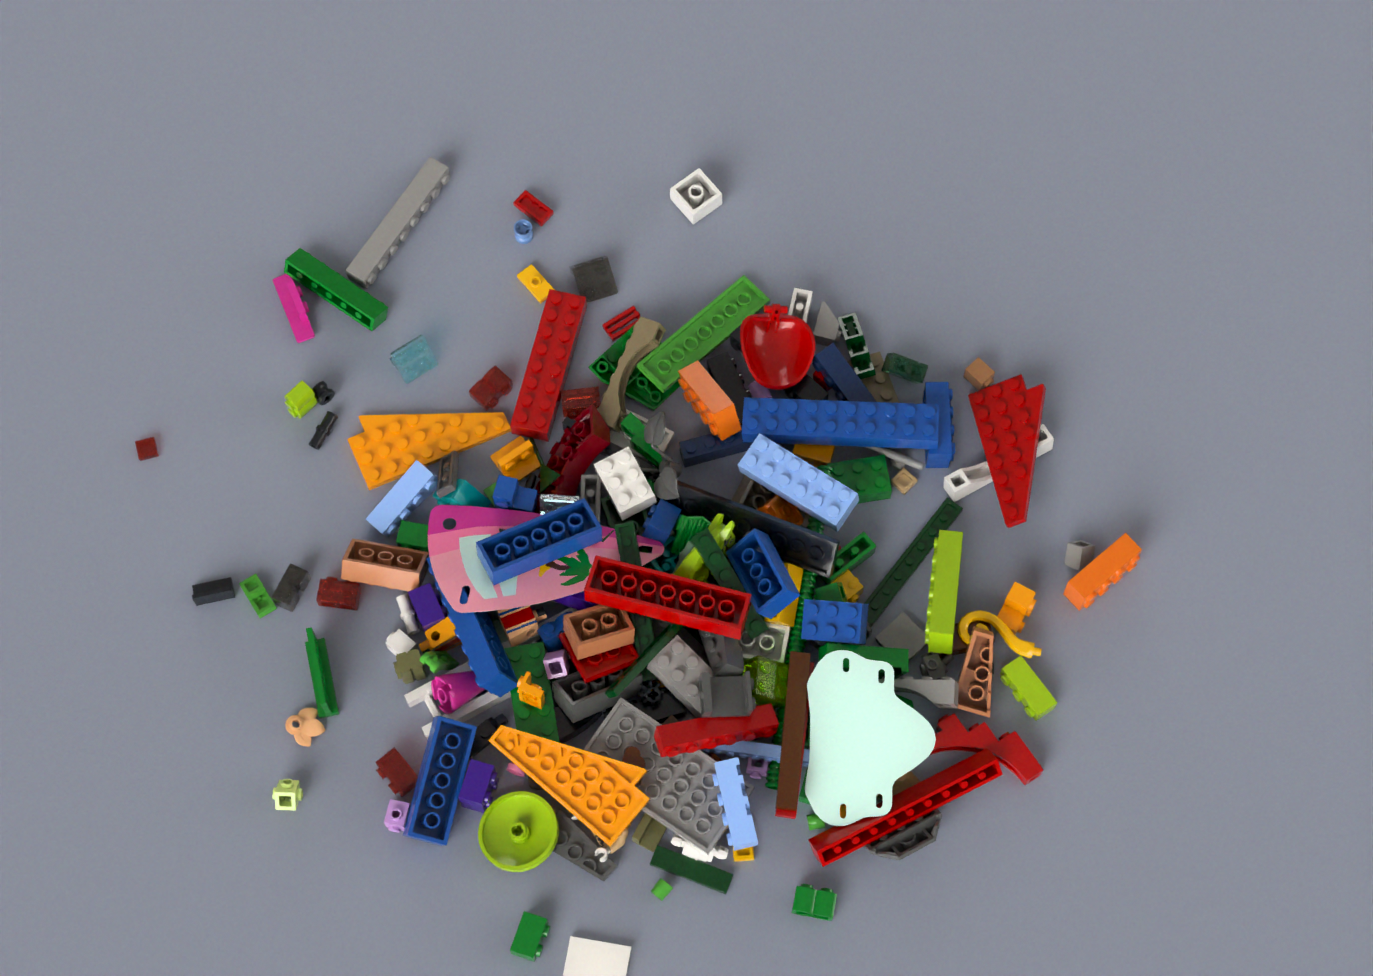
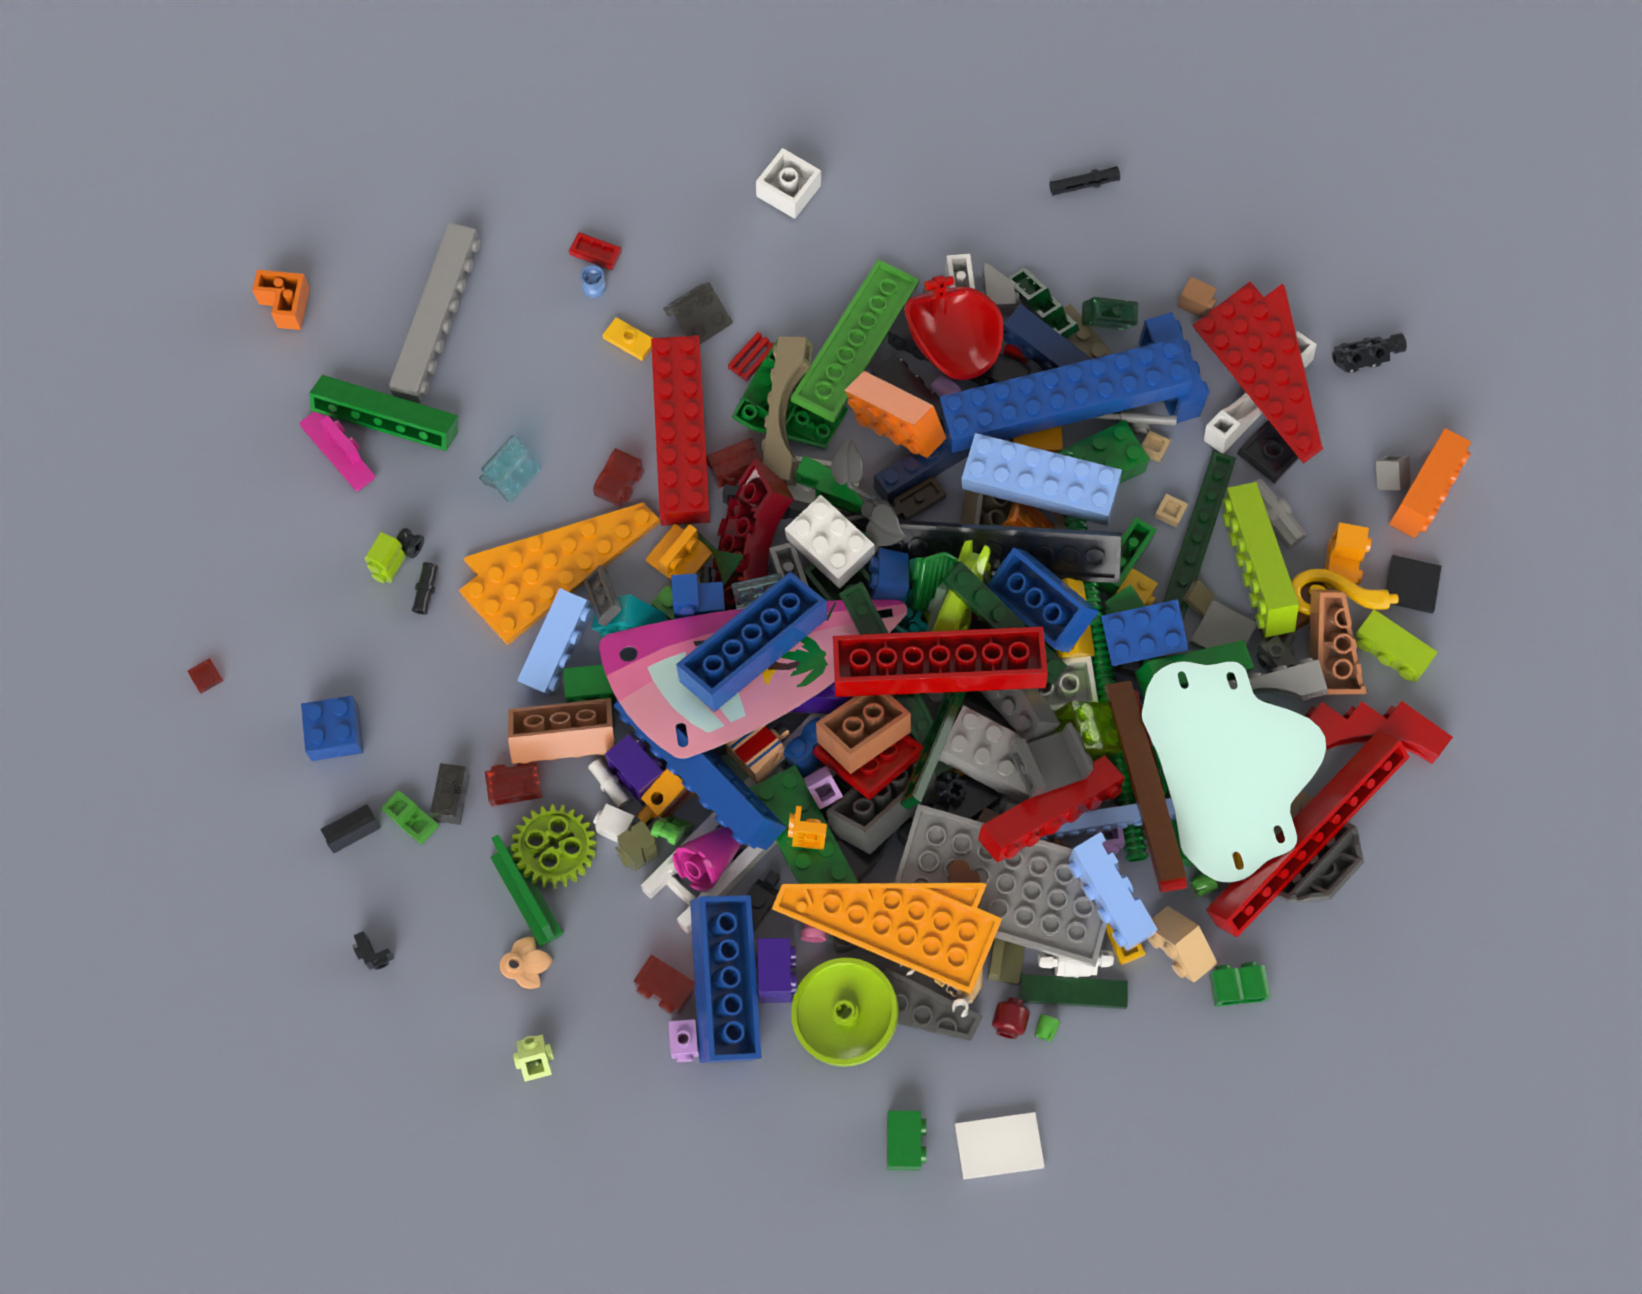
camera: 20 degrees left, 0 degrees up
(195, 682) = (364, 950): none -> black bracket
(223, 514) = (331, 728): none -> blue brick
(294, 179) = (287, 295): none -> orange brick
(357, 664) = (566, 864): none -> lime gear
(637, 874) = (1010, 1018): none -> dark red head
(706, 470) = (918, 499): none -> dark brown plate
(781, 858) = (1182, 943): none -> tan brick
(892, 606) = (1198, 597): none -> dark tan tile
(897, 534) = (1171, 510): none -> tan plate
(927, 257) = (1094, 178): none -> black pin
(976, 560) = (1281, 517): none -> light grey piece
(987, 512) = (1268, 453): none -> black tile
(1062, 645) = (1414, 583): none -> black tile
(1095, 458) = (1361, 355): none -> black brick

